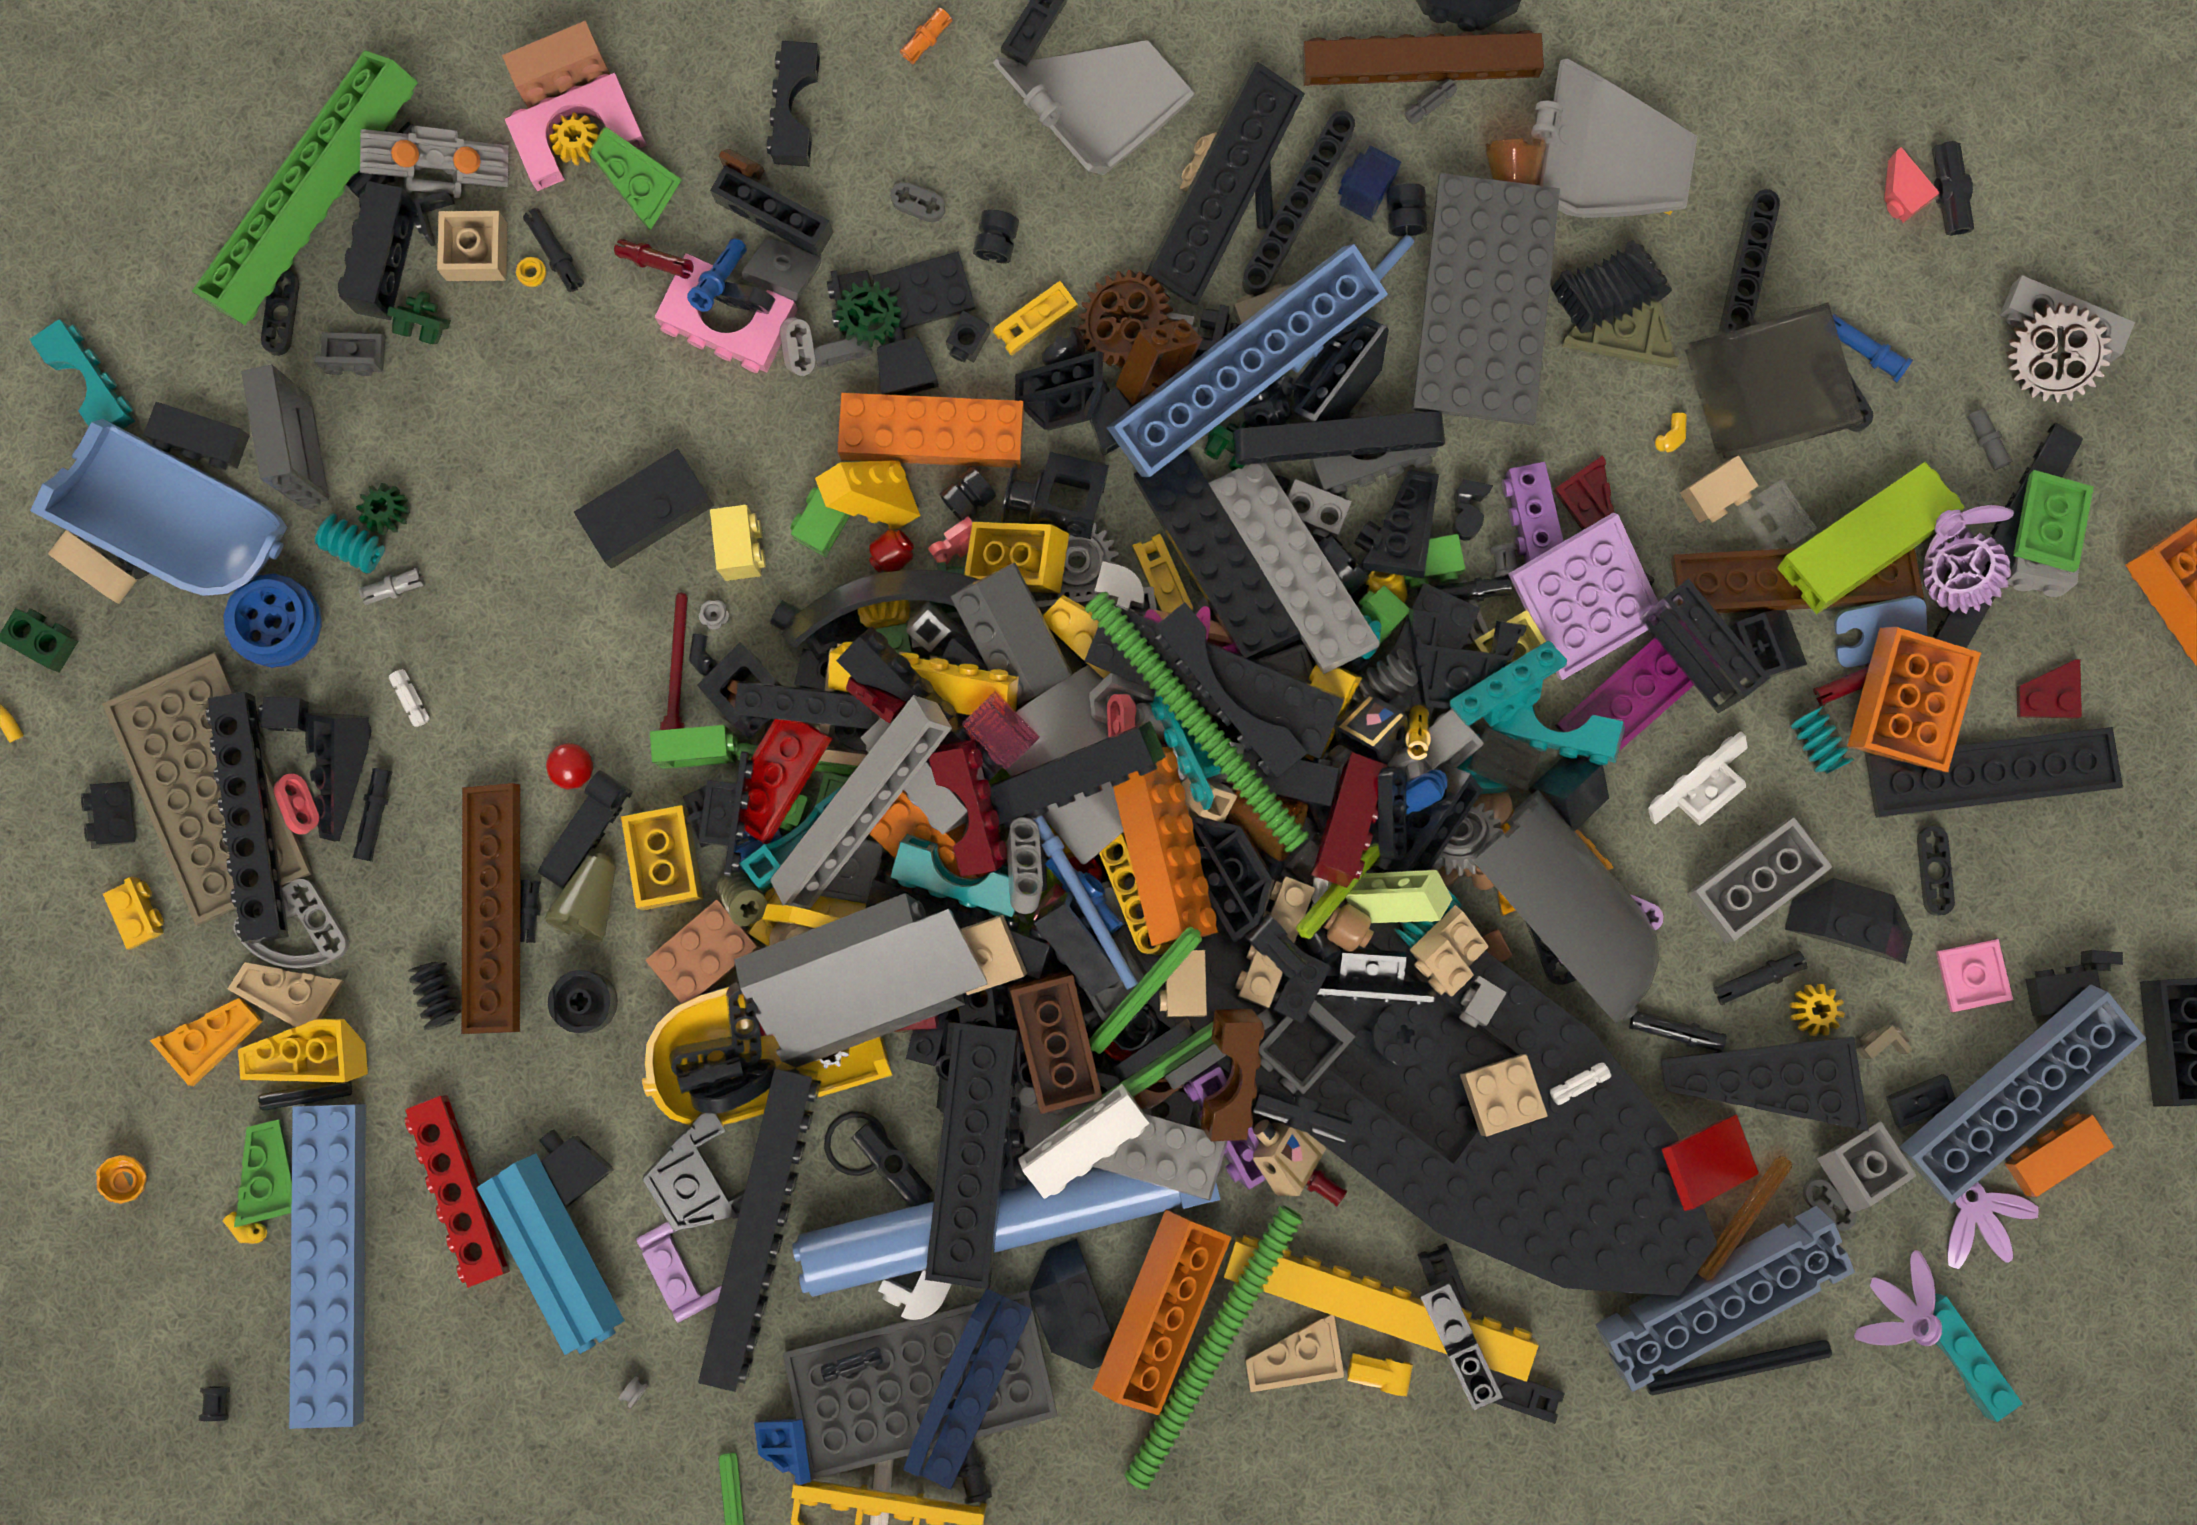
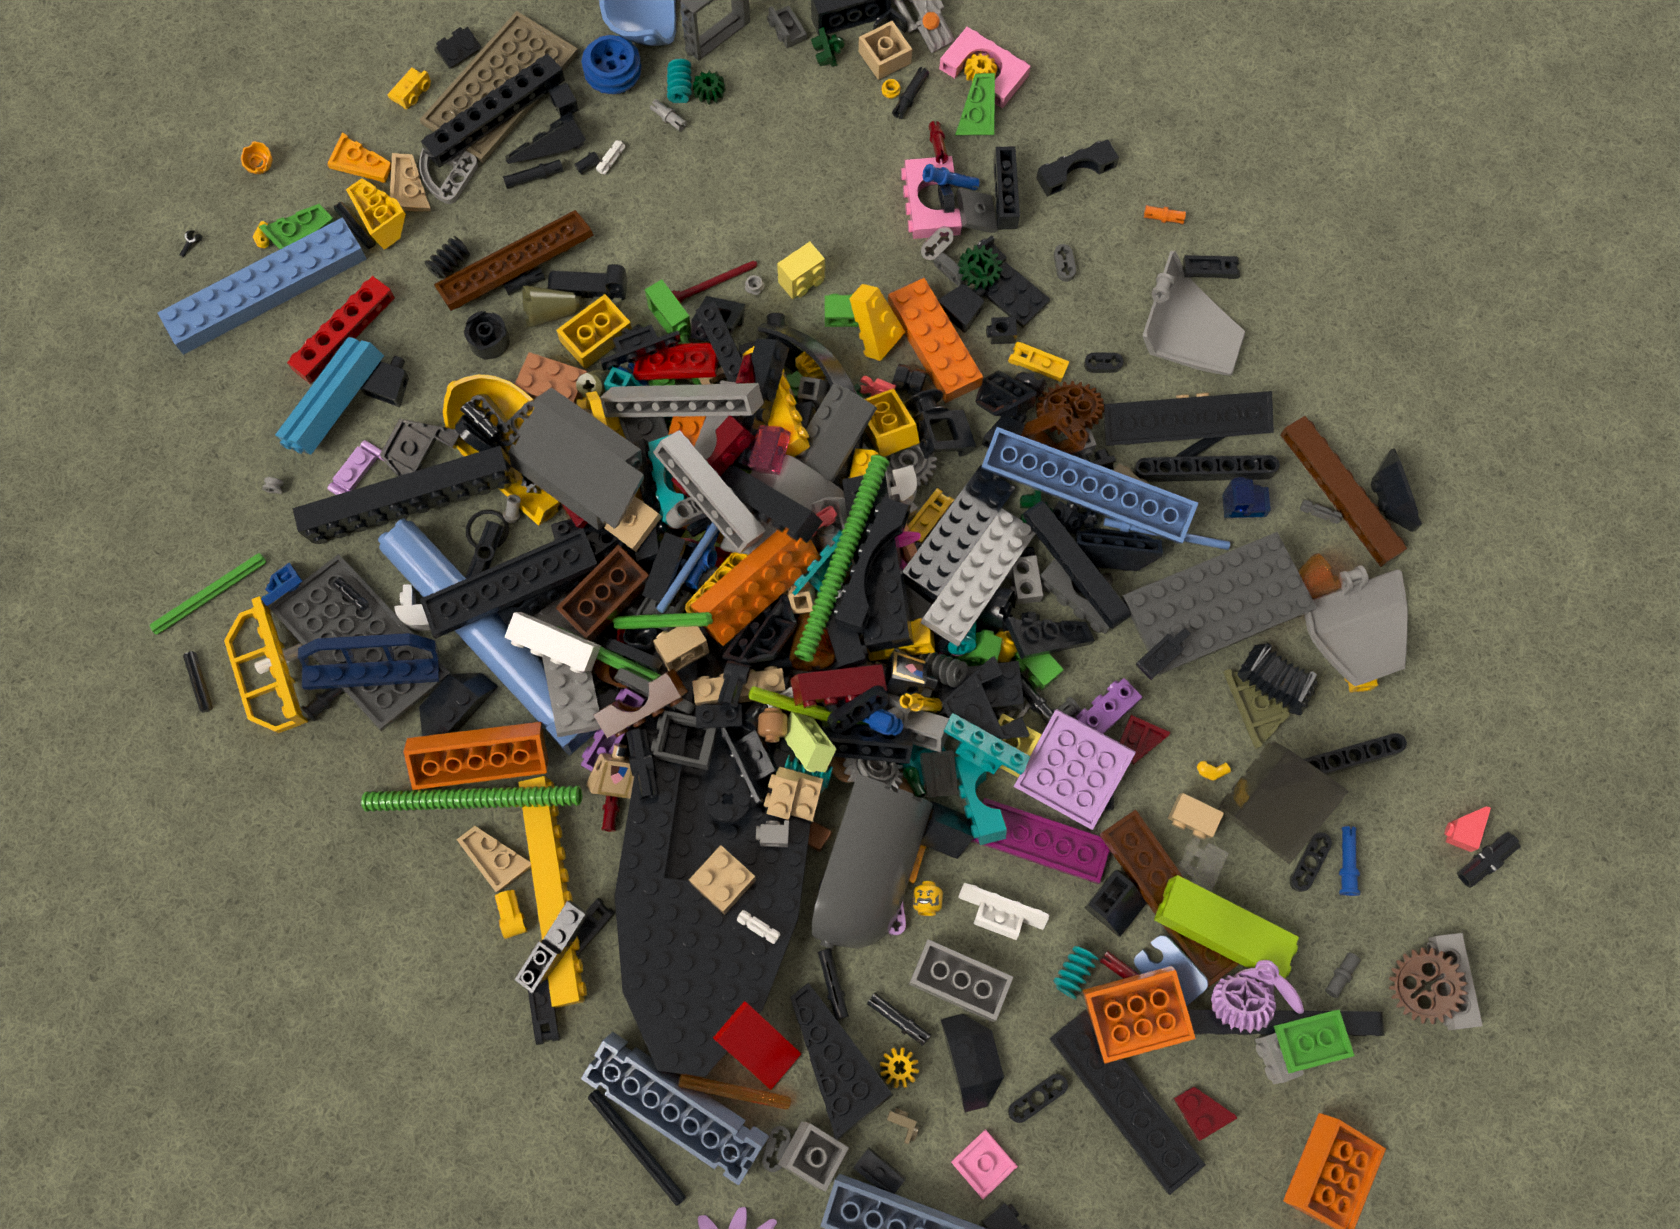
camera: 55 degrees right, 10 degrees down
(195, 1333) = (189, 237): none -> black hand
(214, 1403) = (154, 271): black bush -> none
(297, 805) = (515, 133): coral plate -> none
(399, 733) = (587, 162): none -> black pin
(555, 64) = (1015, 33): nougat brick -> none
(569, 766) = (622, 255): red hair -> none
(643, 508) = (791, 214): black brick -> none
(699, 657) = (725, 290): black arm -> none
(741, 163) = (1022, 156): reddish brown slope -> none
(853, 1099) = (512, 513): none -> light grey pin
(891, 551) = (850, 357): red head -> none
(996, 234) = (1074, 312): black wheel -> none
(1020, 838) = (709, 491): none -> light grey brick
(1089, 242) = (1103, 364): none -> black beam
(1406, 206) = (1245, 530): black wheel -> none
(1470, 518) = (1076, 673): black leg -> none
(1496, 795) = (912, 776): none -> dark green arm
(1518, 405) = (1163, 653): none -> black hinge
(1641, 861) = (927, 898): none -> yellow head
(1704, 647) = (1084, 849): black window -> none

